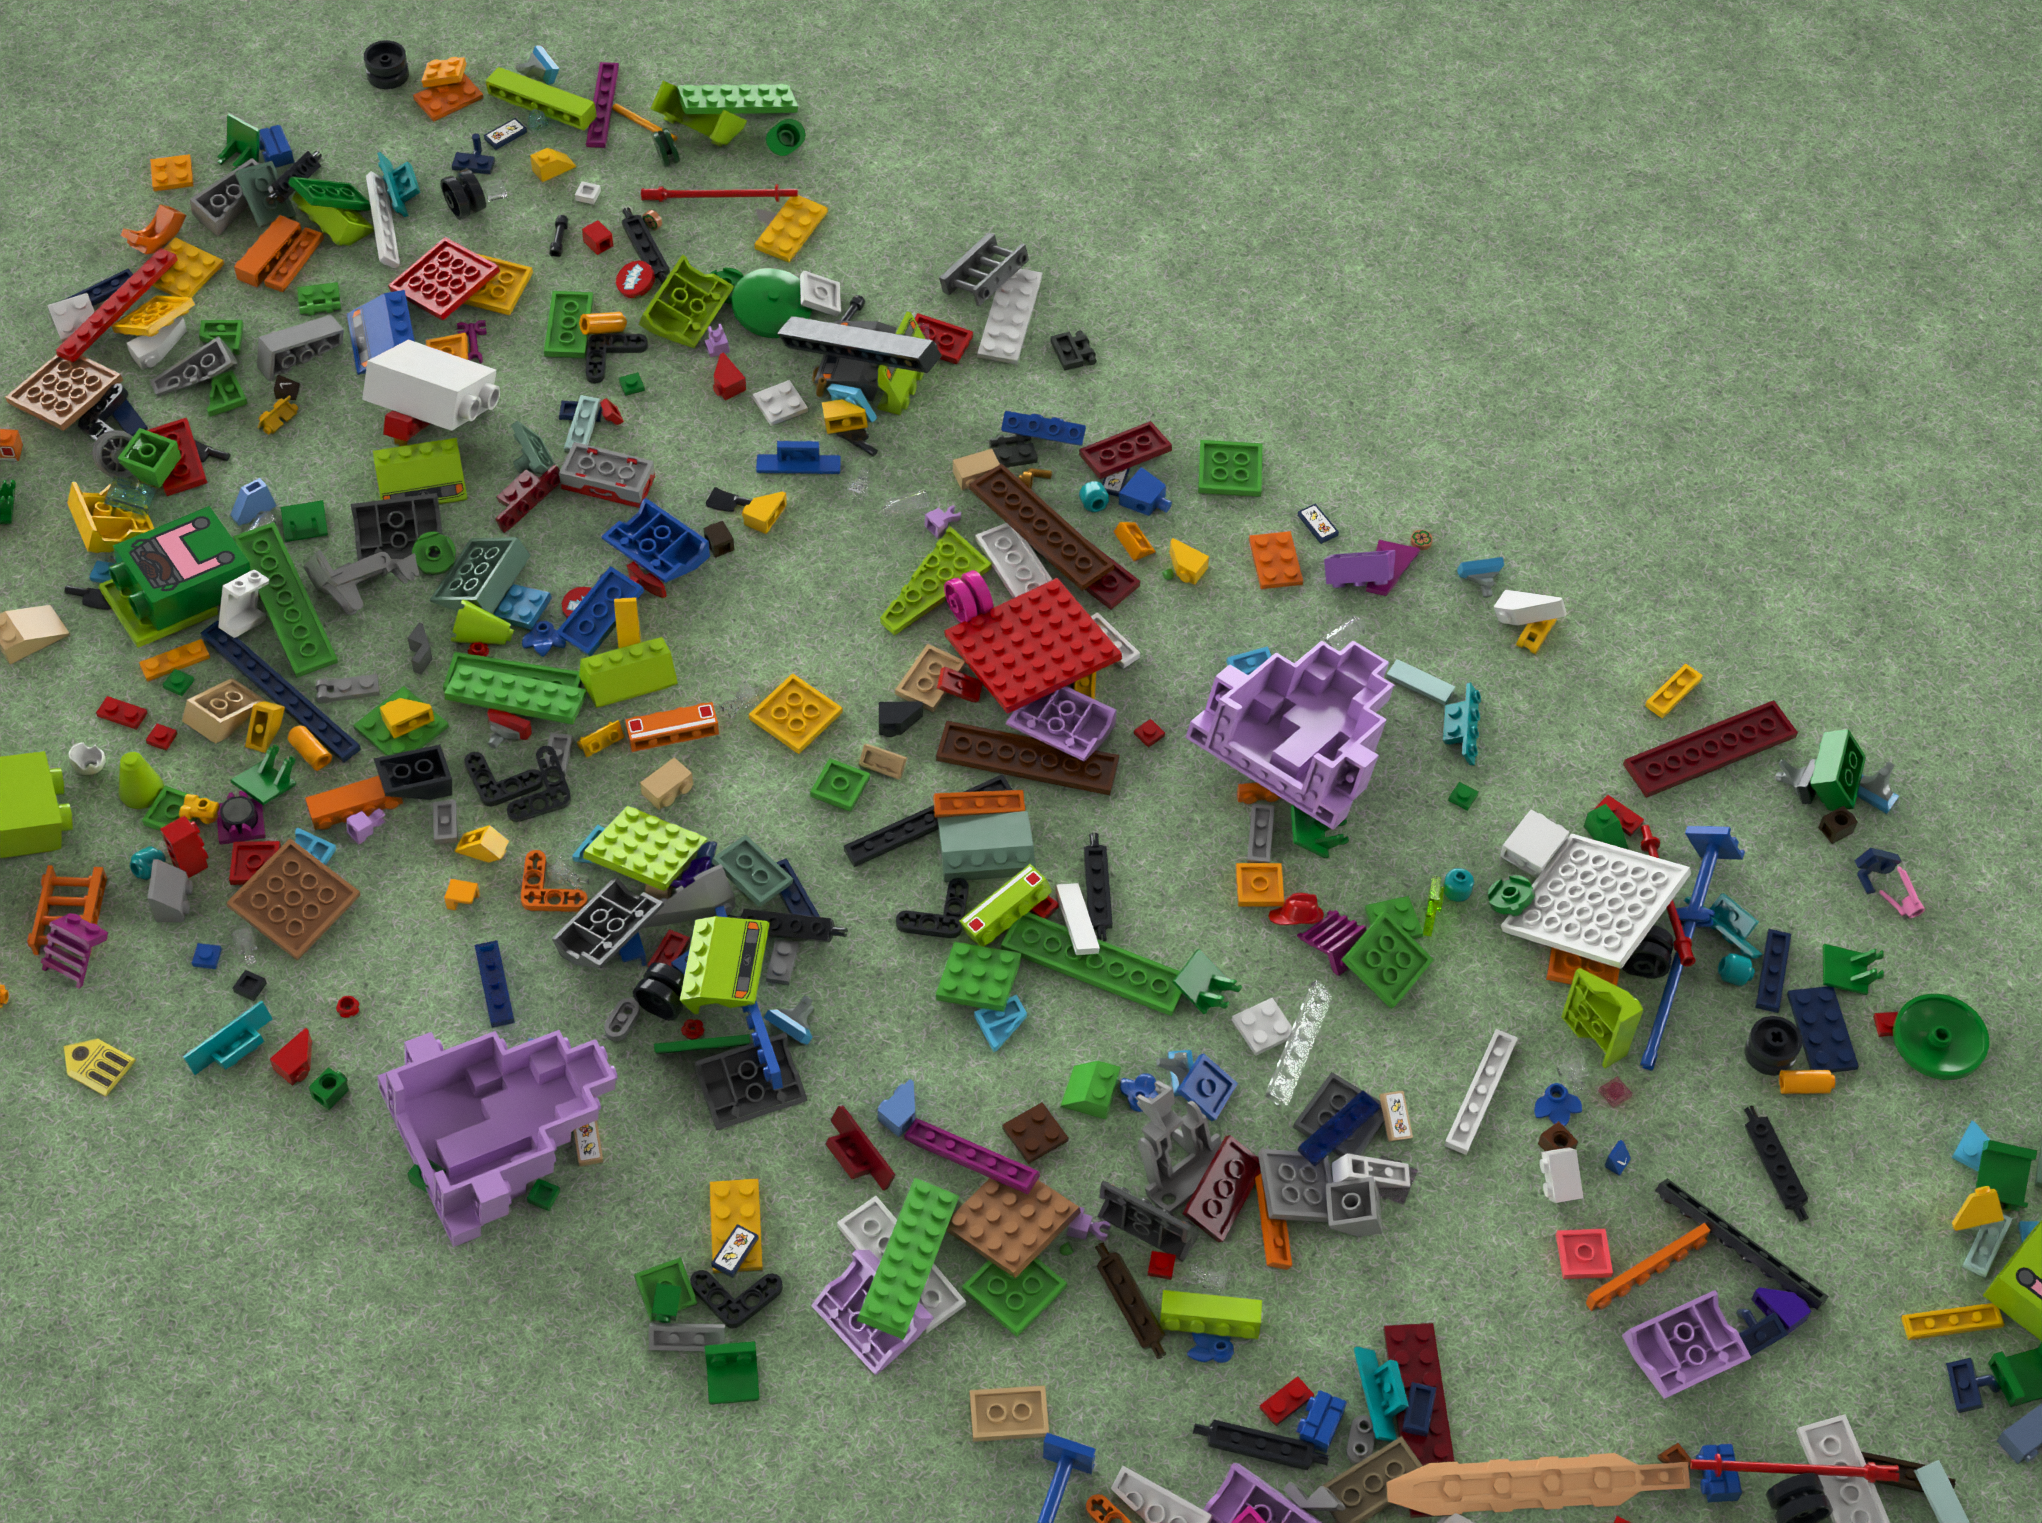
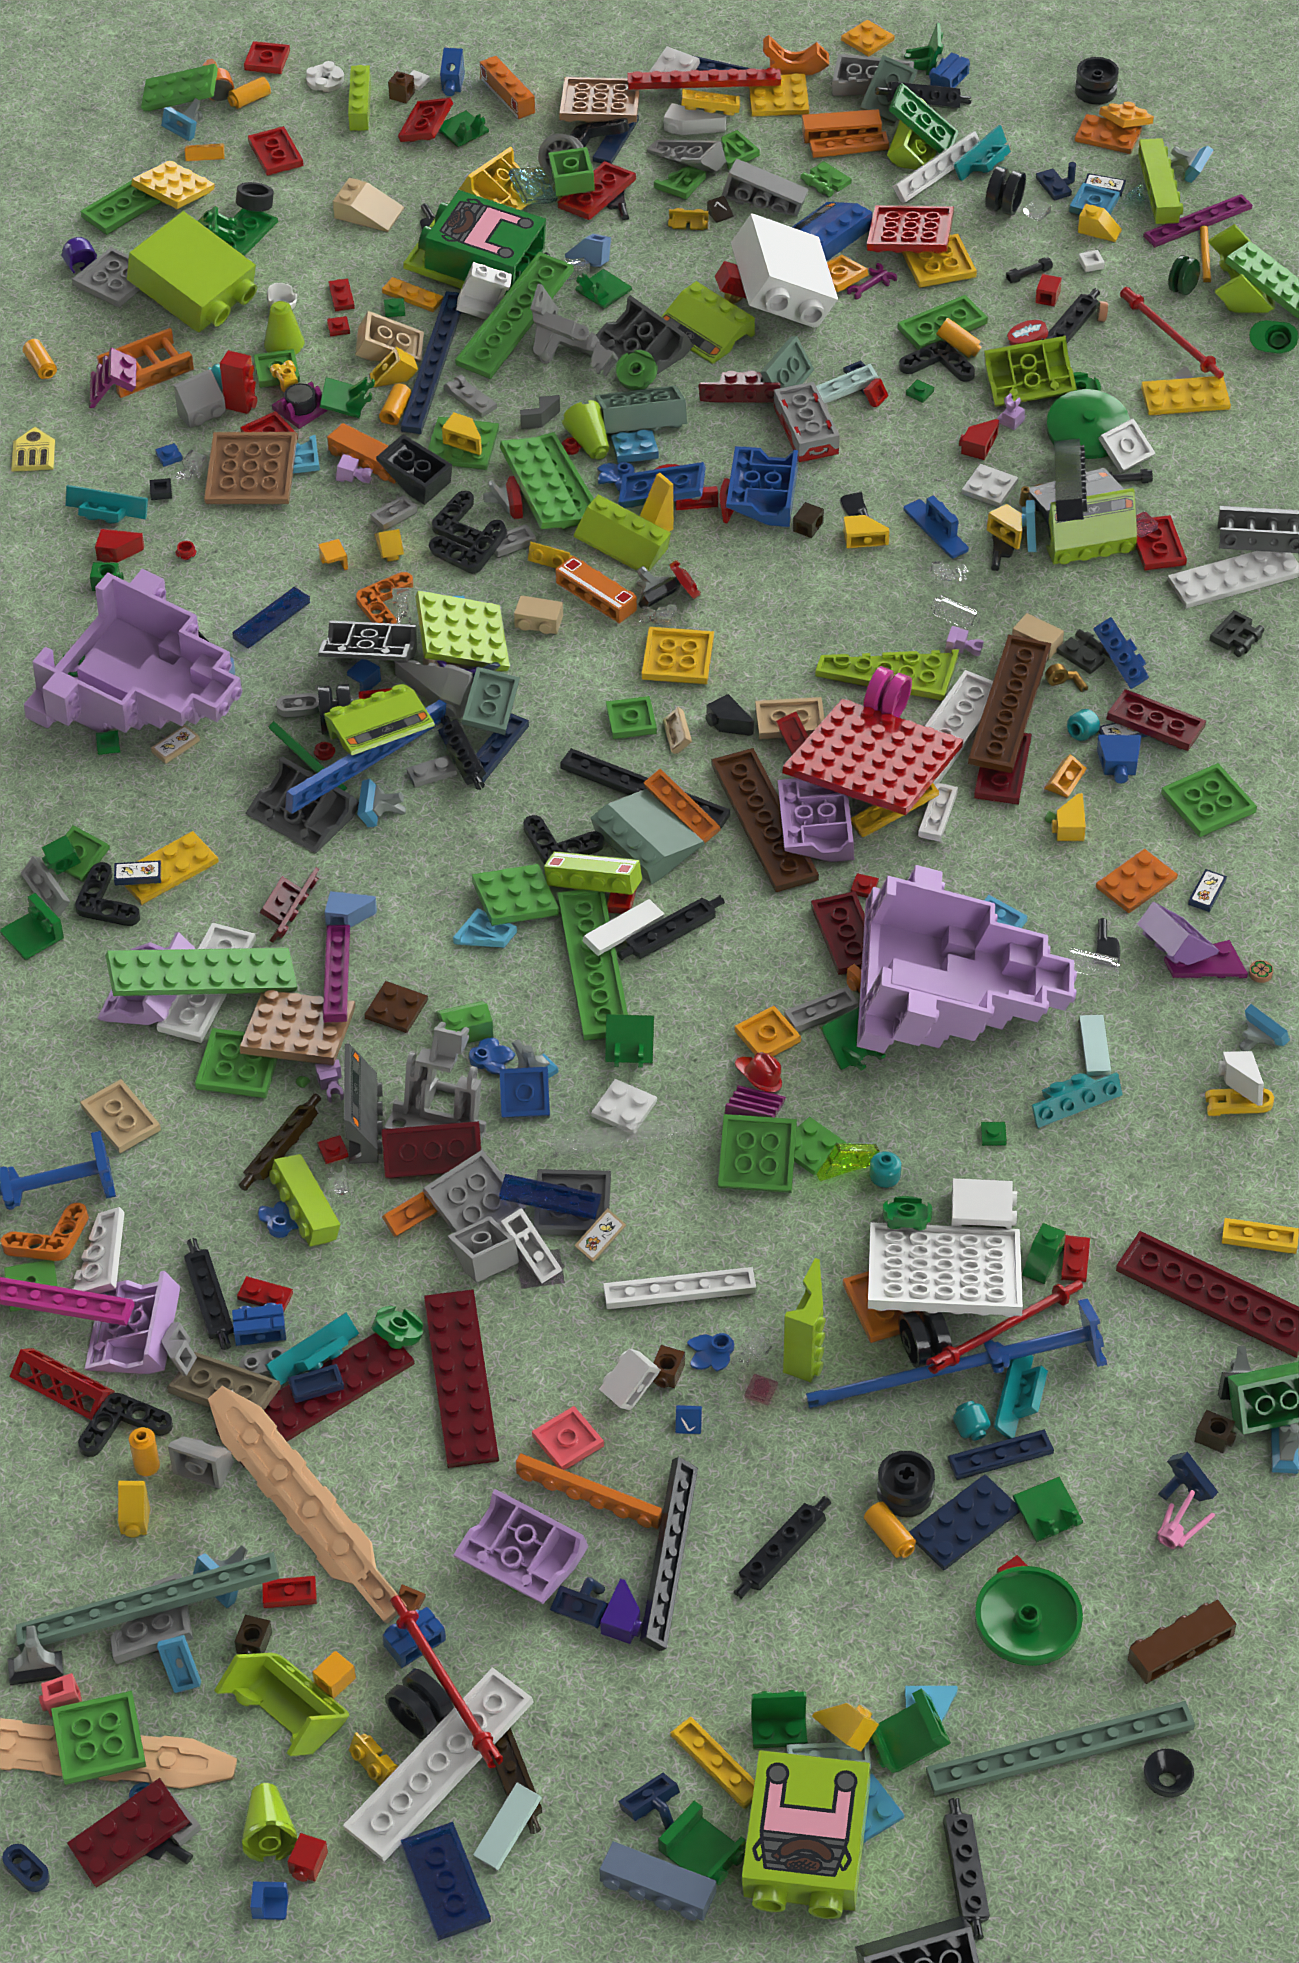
camera: 60 degrees right, 5 degrees down
(517, 150) = (1095, 196): none -> dark azure plate
(708, 685) = (655, 587): none -> black piece
(721, 658) = (685, 579): none -> red tile
(1191, 772) = (842, 928): none -> dark red plate
(1326, 616) = (1107, 945): none -> black piece
(1405, 1321) = (398, 1327): none -> green plate
(1471, 1298) = (461, 1379): none -> dark red plate
(1945, 1258) = (778, 1719): none -> green bracket
(2012, 956) = (1181, 1641): none -> reddish brown brick

